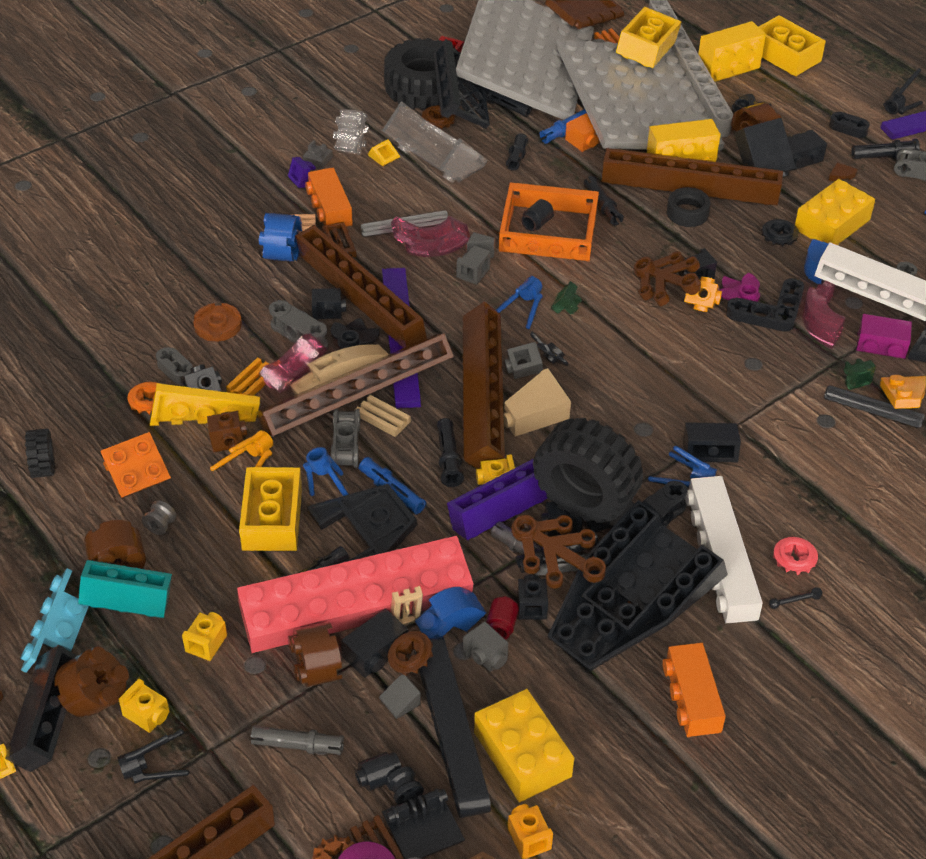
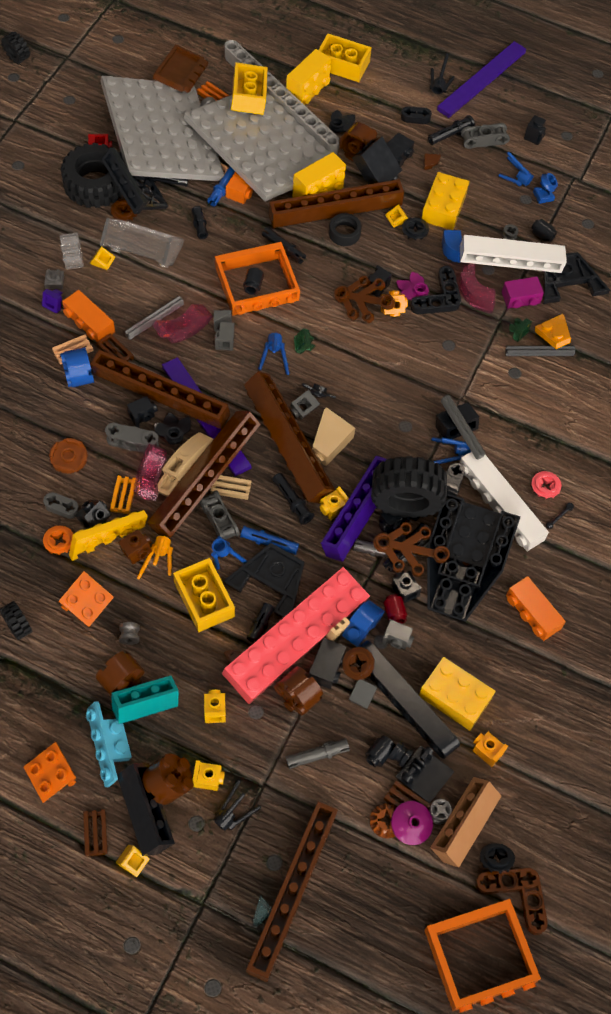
camera: 30 degrees left, 15 degrees up
(710, 443) = (463, 427): none -> dark grey axle
(764, 213) = (396, 216): none -> yellow slope

